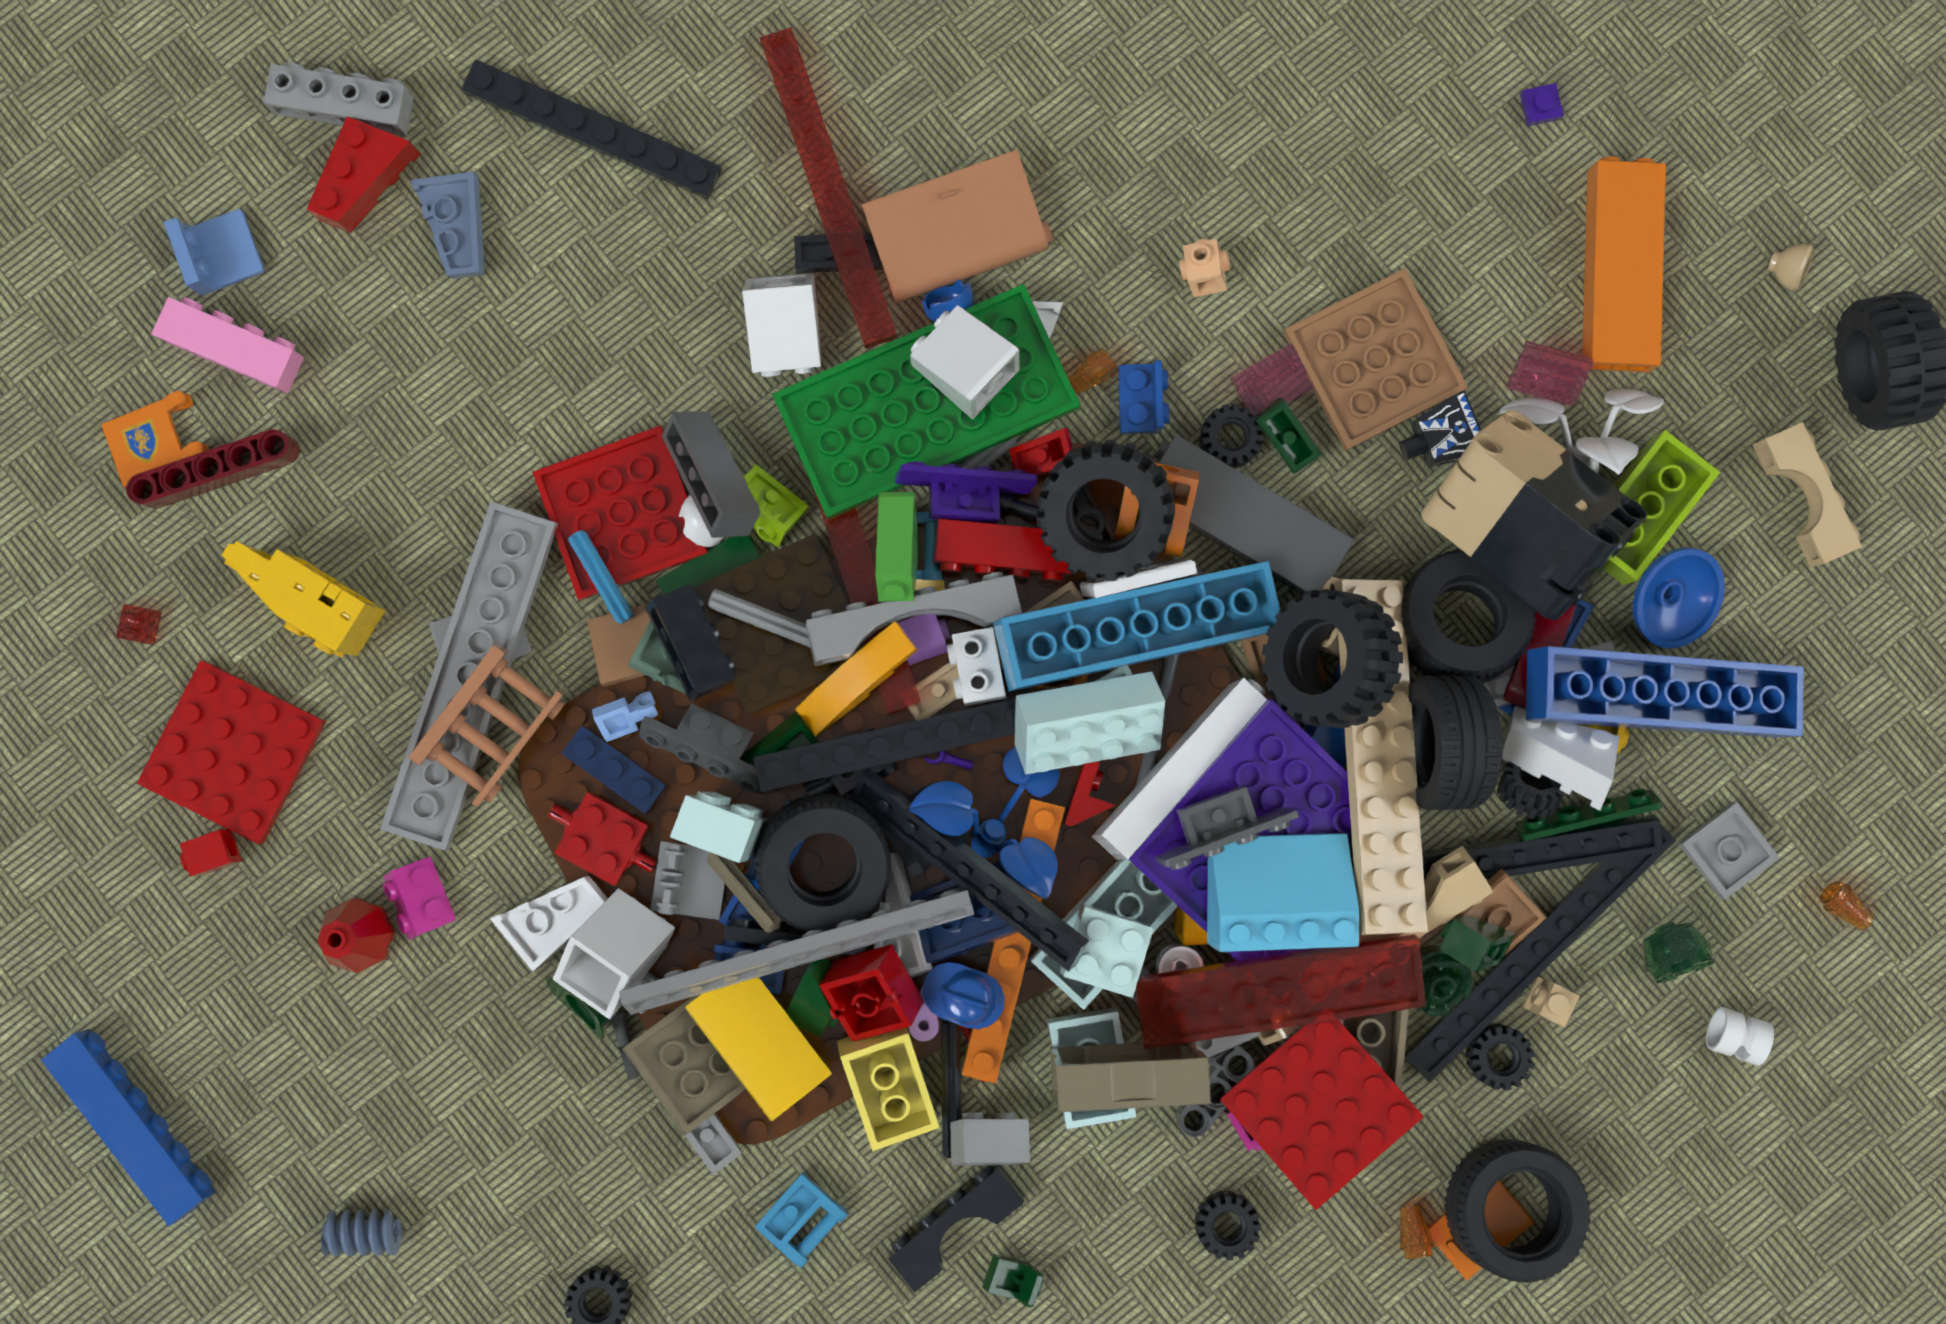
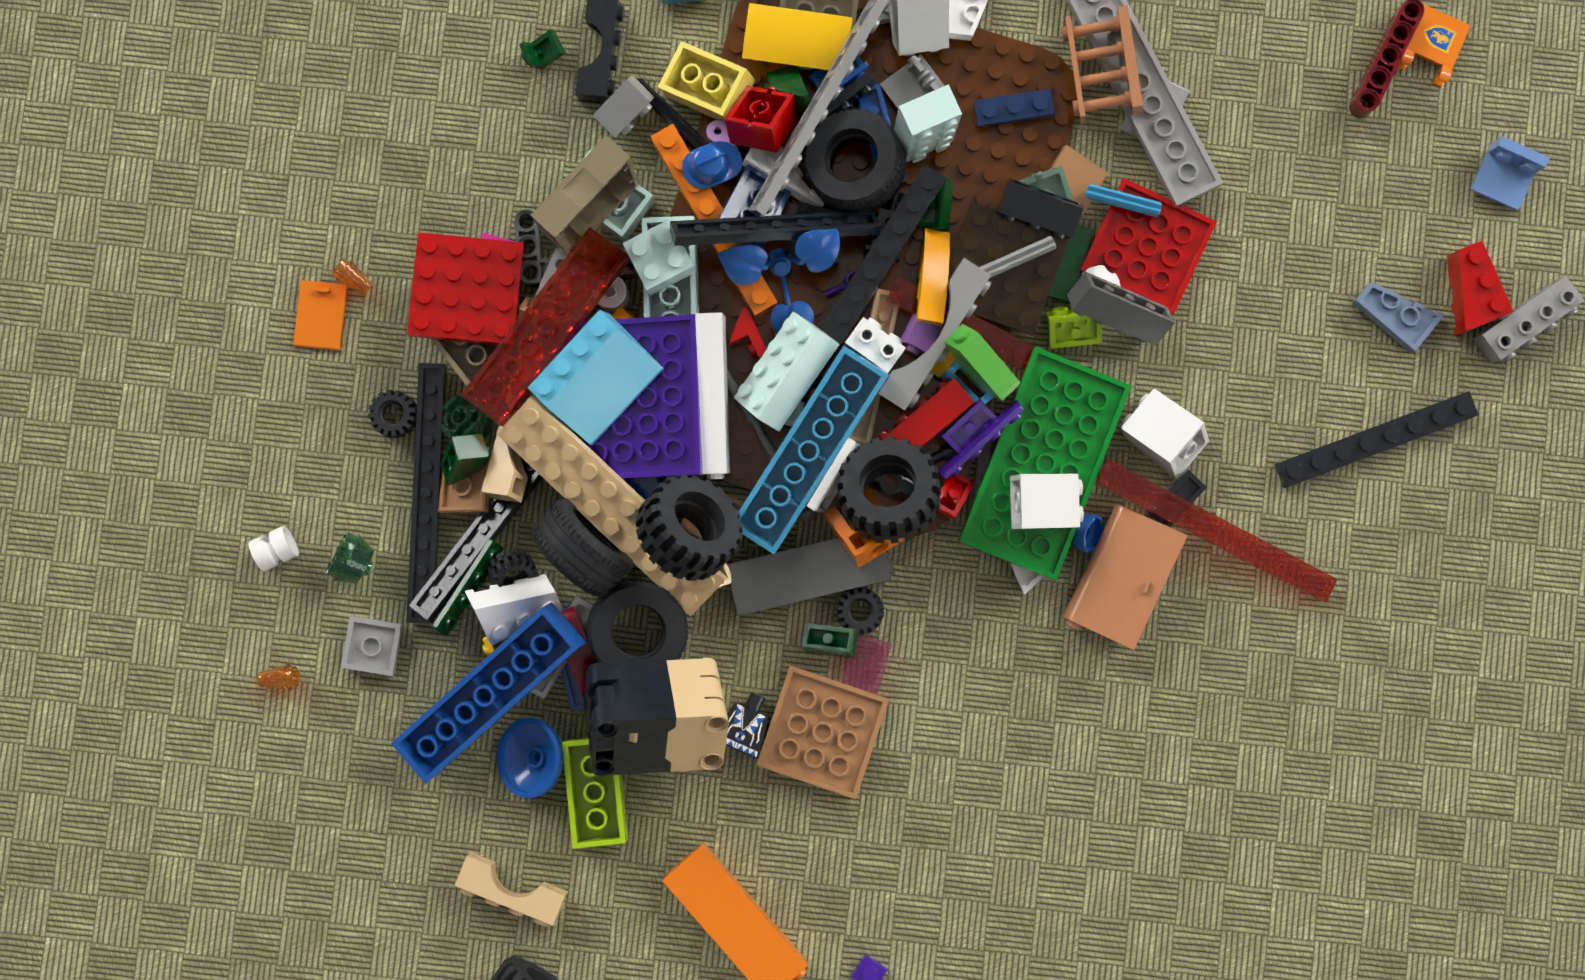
camera: 135 degrees right, 0 degrees up
(227, 344) = (1448, 130): bright pink brick -> none
(307, 598) = (1266, 37): yellow piece -> none
(602, 838) = (983, 66): red plate -> none
(621, 718) = (1036, 137): light blue plate -> none
(707, 742) = (981, 169): dark grey bracket -> none
(745, 892) = (882, 108): dark tan axle -> none
(1093, 371) = (970, 574): clear orange cone -> none
(1142, 398) = (929, 584): blue bracket -> none
(1205, 267) = (966, 690): light nougat brick -> none
(1219, 822) = (664, 379): dark grey bracket -> none
(1232, 1246) = (440, 186): black tyre -> none
(1550, 373) = (718, 817): clear pink plate -> none
(1550, 1001) = (393, 469): tan brick -> none
(1565, 1222) = (274, 325): black tyre -> none
(1592, 451) = (652, 789): white plant -> none

